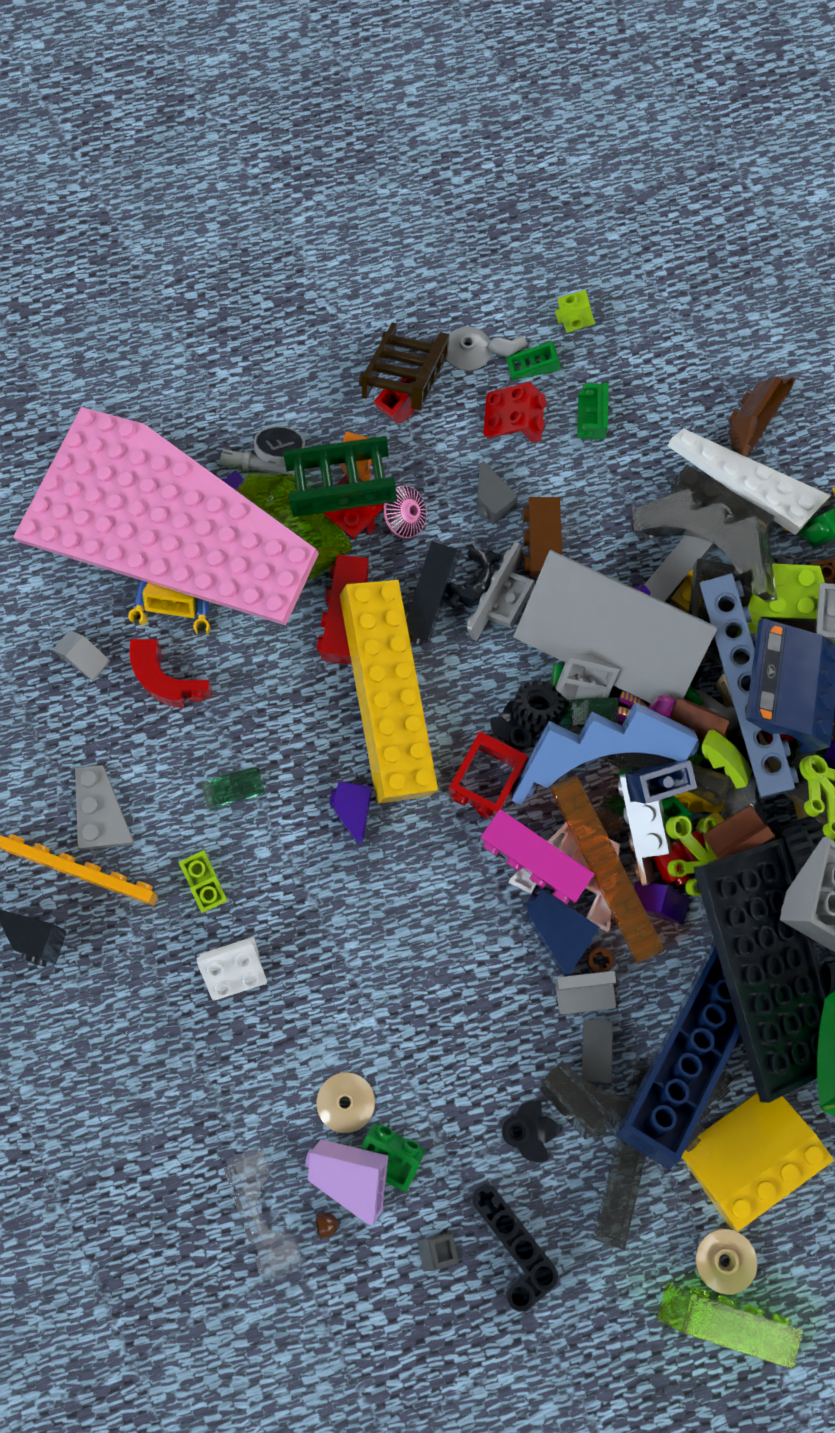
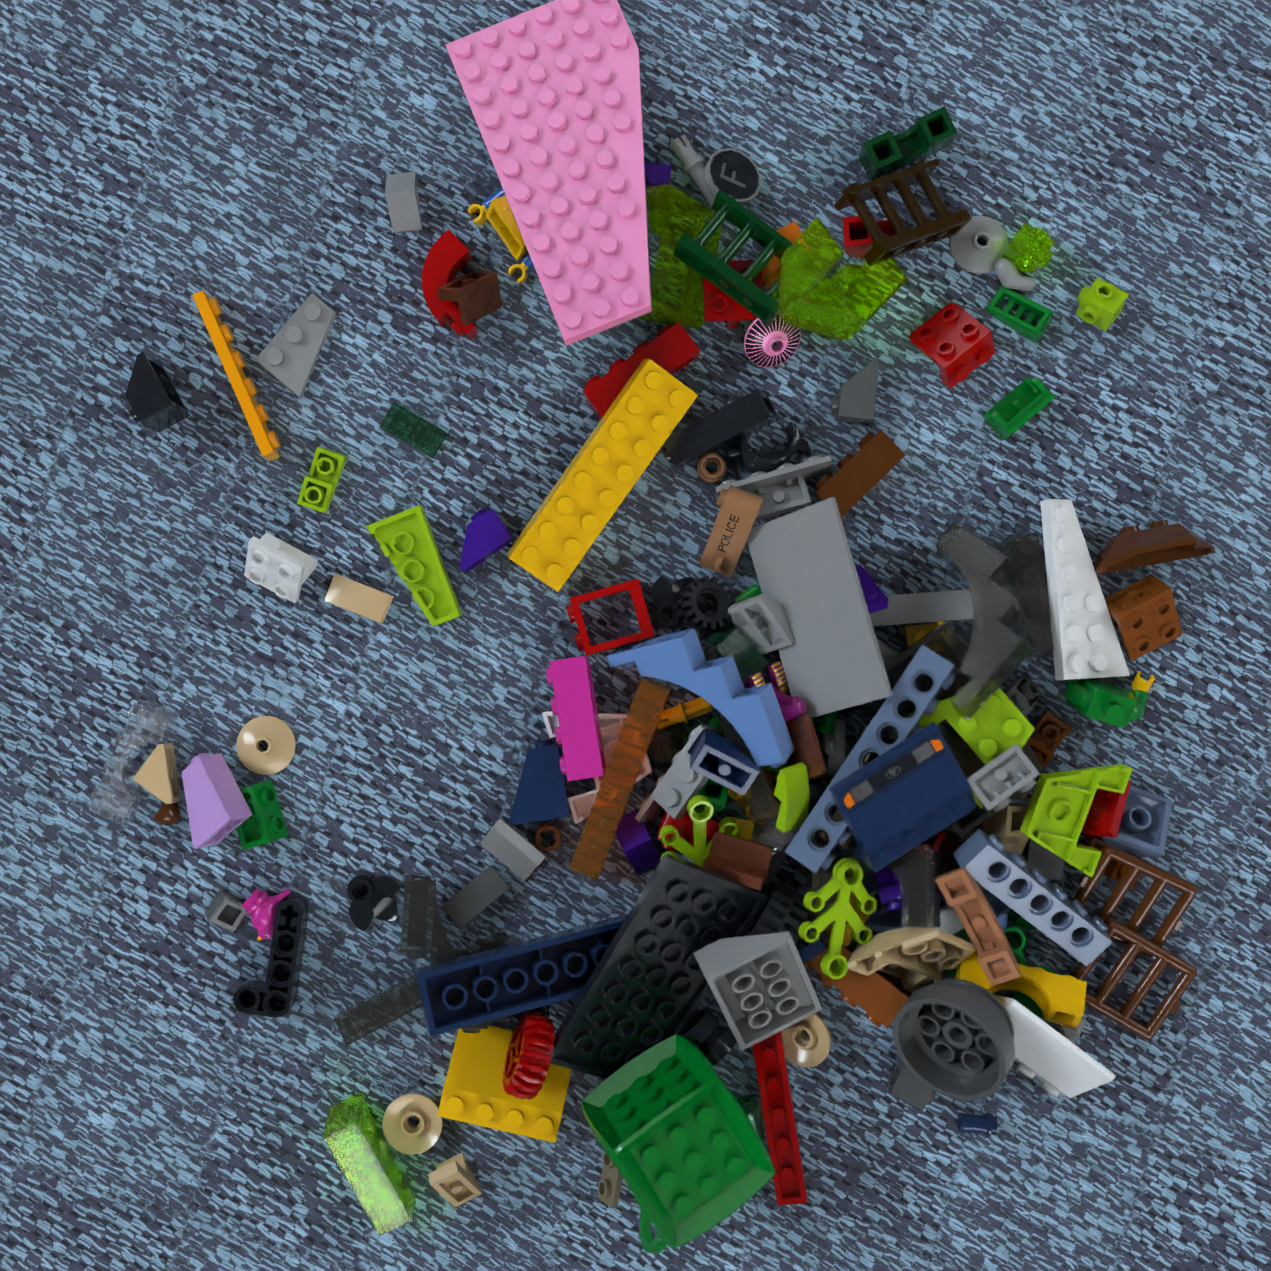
camera: 45 degrees right, 15 degrees up
(189, 659) = (475, 293): none -> copper panel
(292, 1201) = (160, 774): none -> tan slope
(308, 933) = (358, 598): none -> tan slope
(318, 867) = (414, 553): none -> lime wing
(362, 342) = (889, 152): none -> dark green arch
(413, 449) = (833, 305): none -> clear neon green windscreen
(449, 616) = (711, 458): none -> medium nougat plate
(465, 1221) = (263, 911): none -> dark pink animal
(500, 320) = (1029, 249): none -> clear neon green brick
(505, 644) = (730, 530): none -> medium nougat door
(599, 782) = (684, 712): none -> yellow axle
(753, 1113) = (528, 1056): none -> red gear
(798, 1270) = (455, 1180): none -> tan slope
(800, 452) = (1144, 615): none -> dark orange bracket

